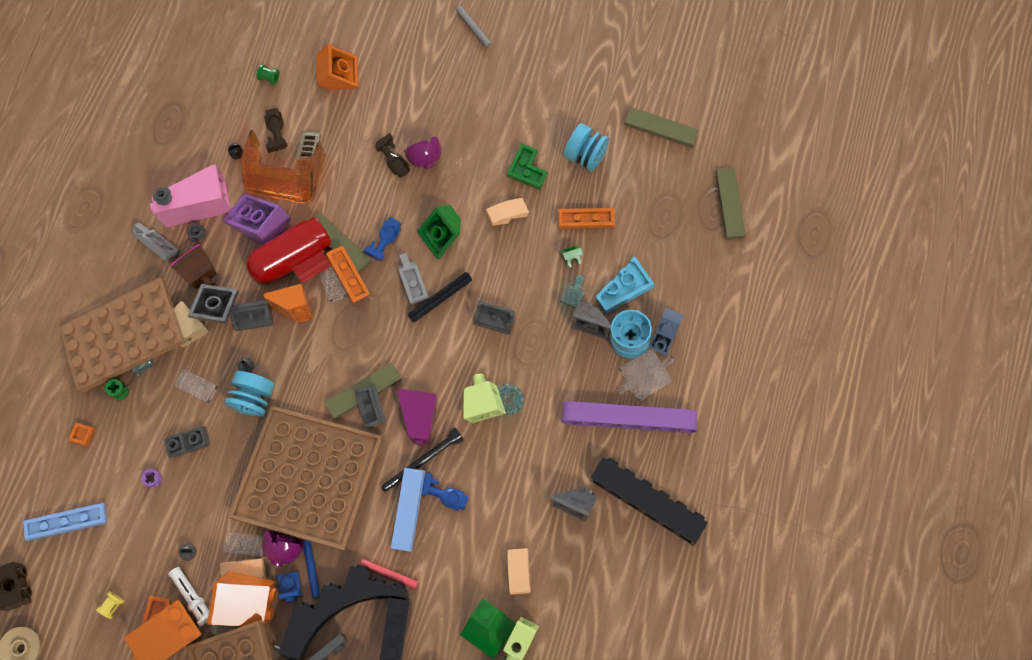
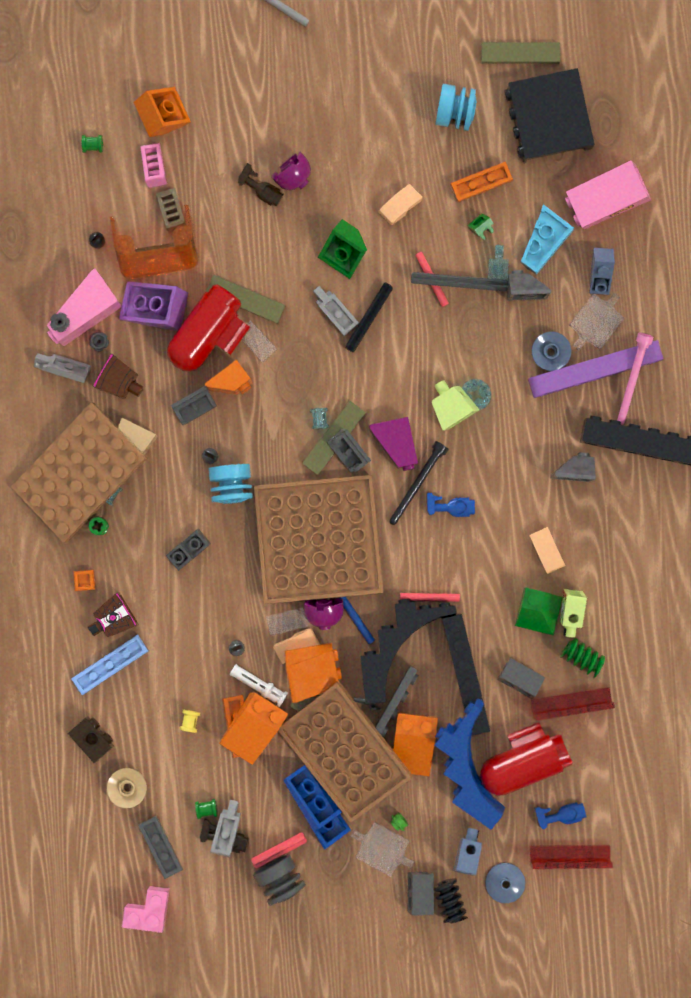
camera: 20 degrees left, 15 degrees up
(89, 477) = (113, 617): none -> torso
(158, 478) = (176, 592): medium lavender bush -> none
(195, 386) = (171, 493): clear plate -> none
(213, 303) = (157, 410): flat silver slope -> none
(275, 124) = (124, 196): dark brown piece -> none
(289, 587) = (344, 643): blue bracket -> none
(307, 119) = (155, 177): none -> bright pink slope
(347, 274) = (270, 329): orange plate -> none
(357, 368) = (319, 418): none -> clear light blue bush
(388, 234) = (291, 272): blue piece -> none
(408, 509) = (424, 533): light blue tile -> none
(494, 317) = (431, 319): dark grey hinge -> none
(509, 284) = (426, 269): none -> coral bar
(522, 168) = (397, 153): green plate -> none
(532, 294) = (459, 281): none -> dark grey axle
(595, 376) = (553, 341): none -> sand blue dish
(634, 324) = (576, 279): medium azure wheel -> none
(668, 183) = (549, 114): none -> black panel
(681, 405) = (643, 342): none -> bright pink piece
(696, 267) = (607, 195): none -> bright pink slope
(730, 203) = (618, 111): olive tile -> none

